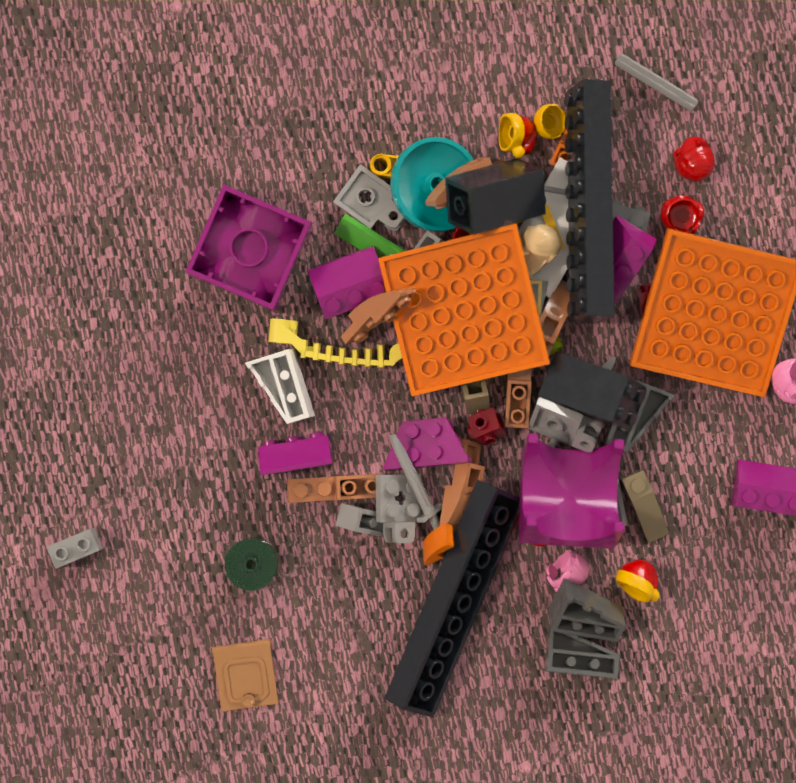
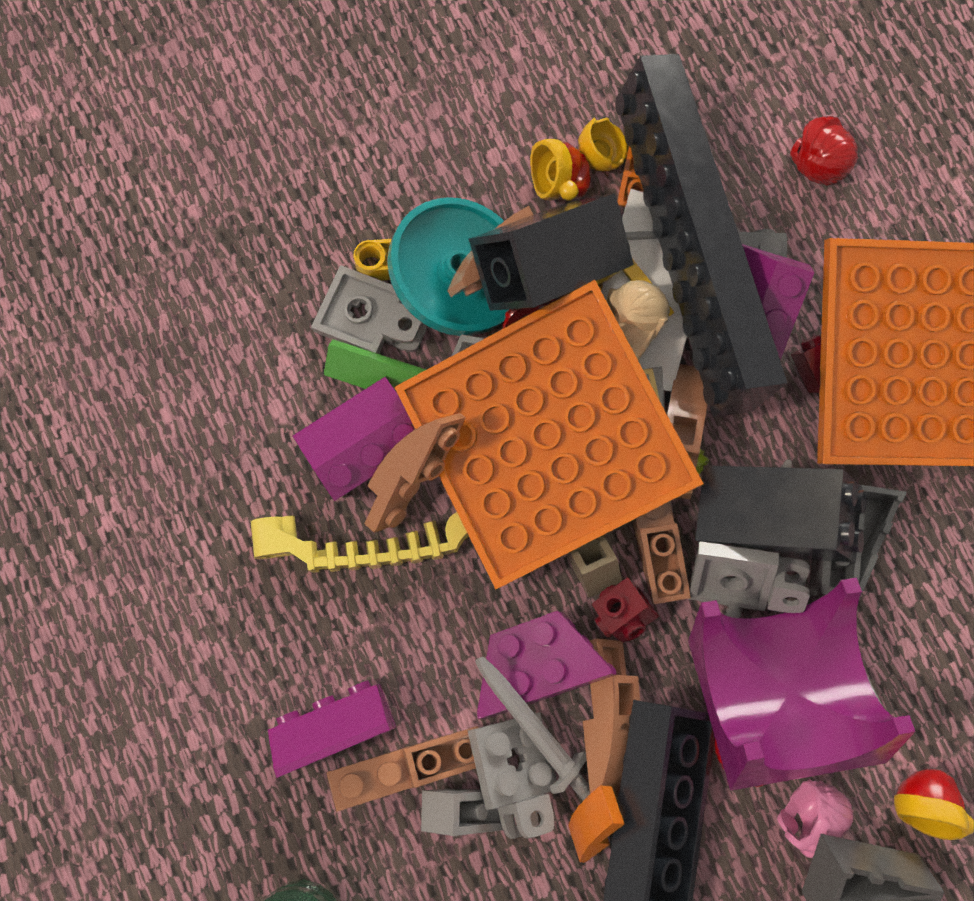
camera: 10 degrees left, 10 degrees down
(249, 248) = (189, 417): magenta piece -> none
(284, 384) = (291, 618): white wedge -> none
(644, 505) = (904, 677): dark tan slope -> none
(656, 82) = (738, 64): light grey axle -> none
(682, 214) = (829, 220): red hair -> none

